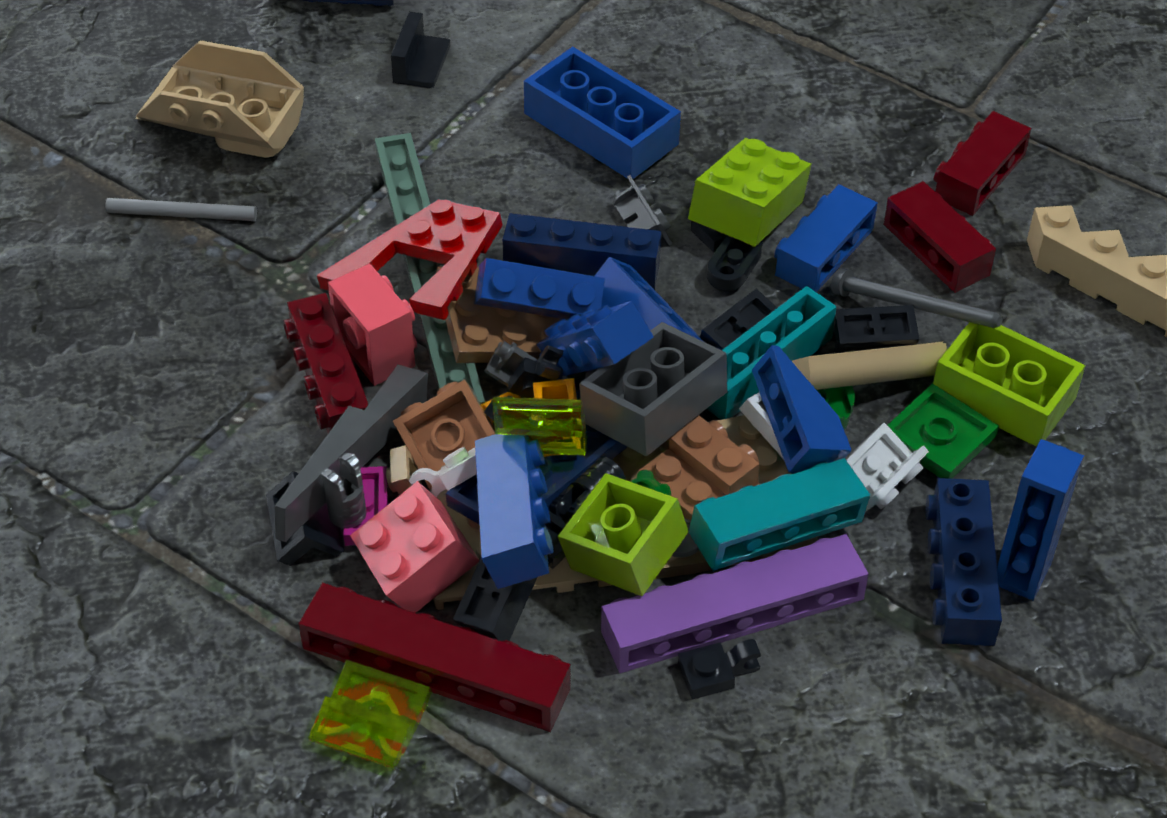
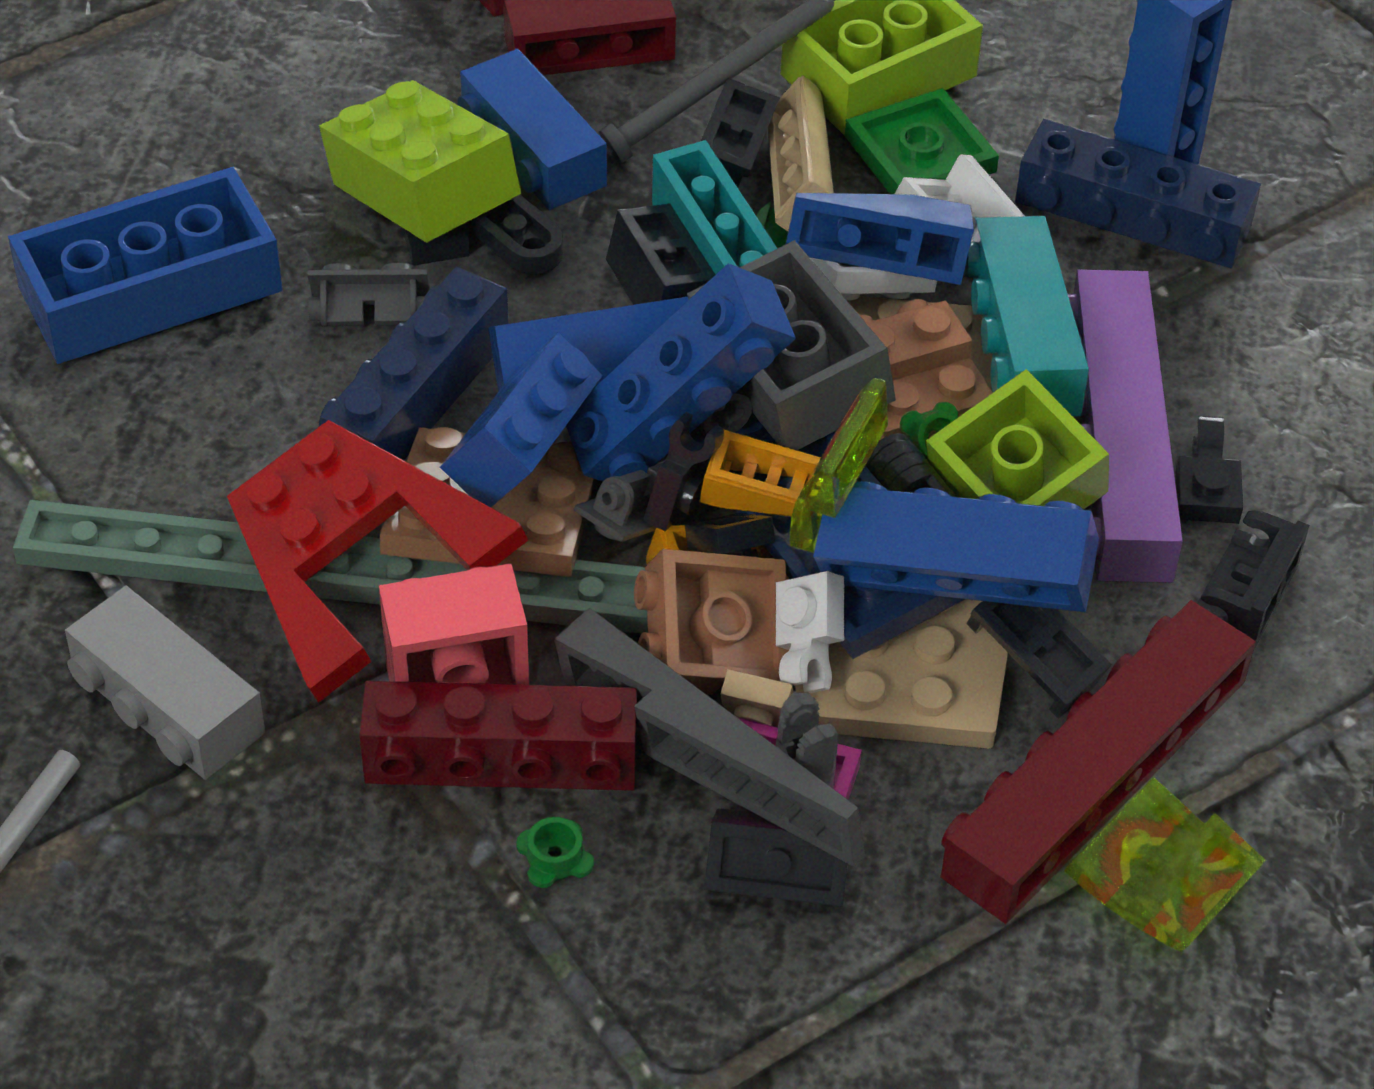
camera: 70 degrees left, 0 degrees up
(267, 421) = (549, 836): none -> green plate
(311, 227) = (164, 683): none -> light grey brick
(414, 548) = (928, 710): coral brick -> none
(626, 712) = (1255, 573): none -> black hinge

